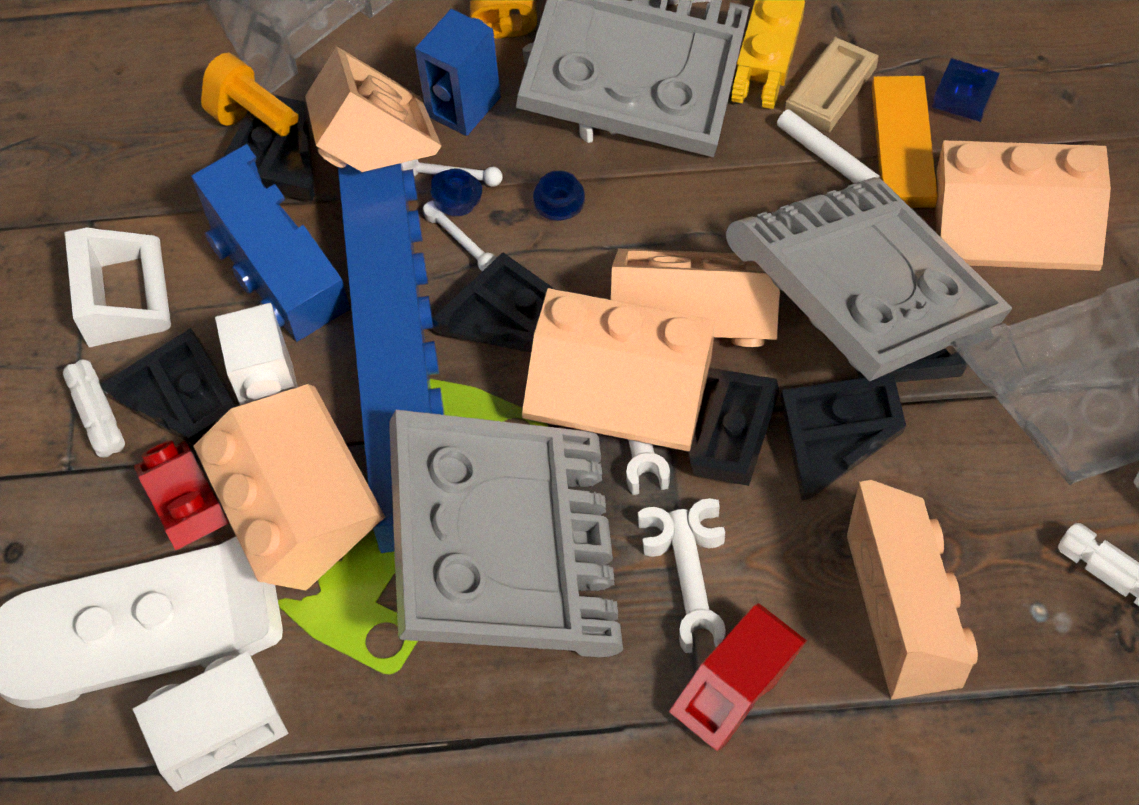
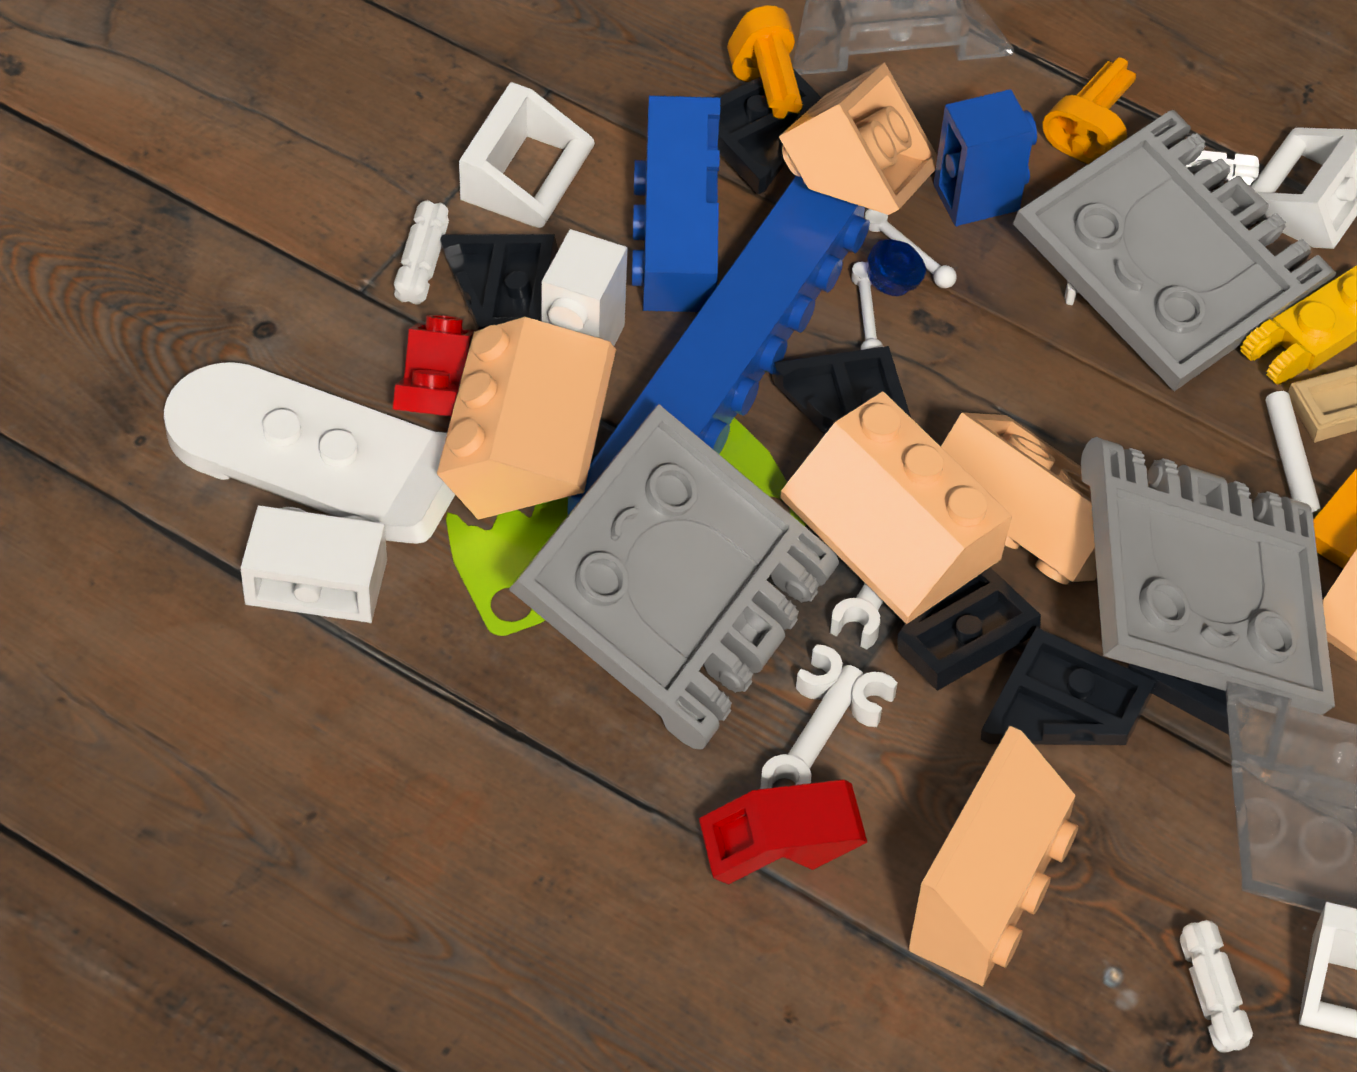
camera: 30 degrees right, 5 degrees down
(559, 185) = (989, 331): clear blue plate -> none

